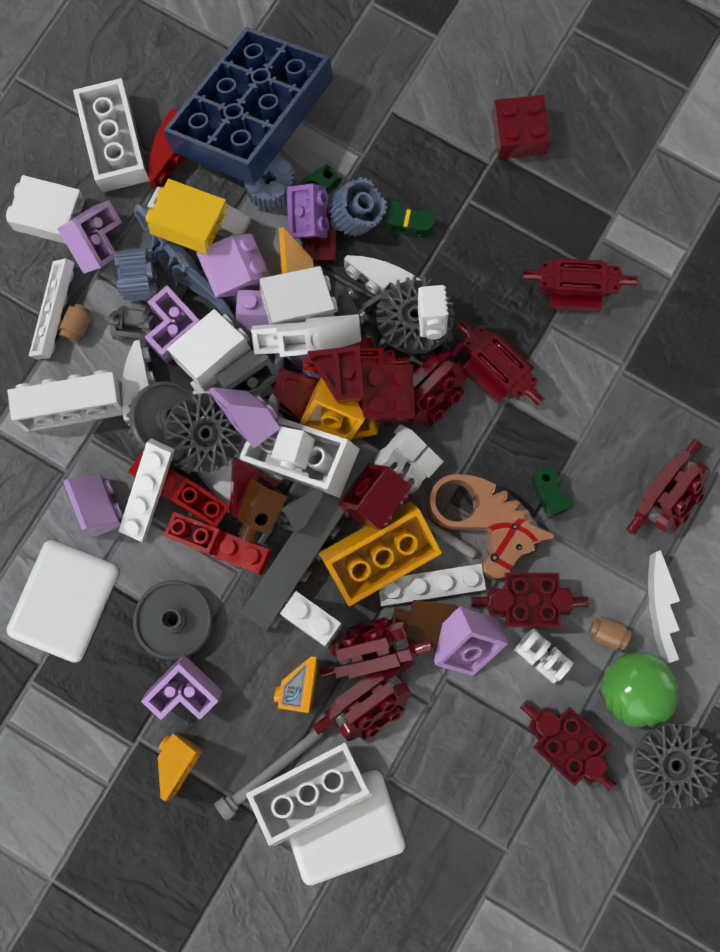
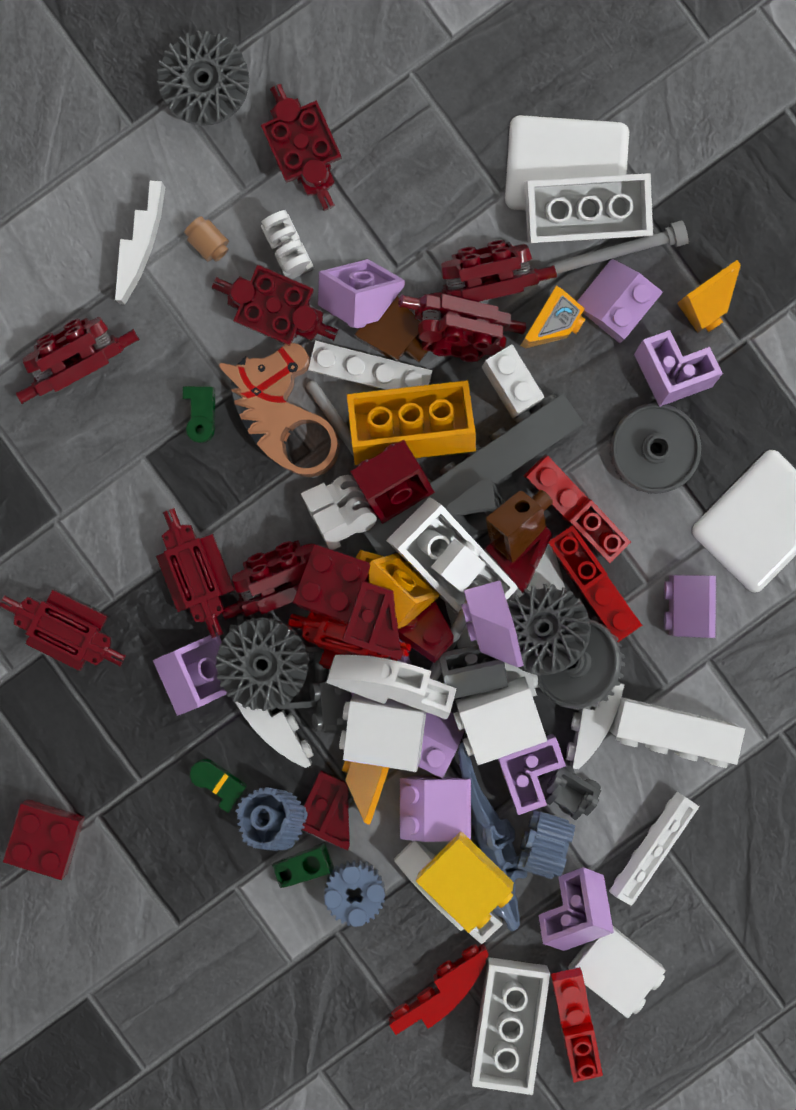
camera: 160 degrees left, 10 degrees up
(60, 156) = (576, 1024): none -> red slope
(75, 323) = (634, 820): medium nougat brick -> none
(146, 489) = (630, 594): white plate -> none
(249, 105) = (340, 989): dark blue brick -> none
(253, 730) = (618, 299): none -> lavender slope
(307, 211) = (328, 835): medium lavender bracket -> none
(432, 311) = (246, 649): white brick -> none
(468, 289) = (191, 674): none -> lavender slope
(640, 689) = (203, 168): bright green piece -> none

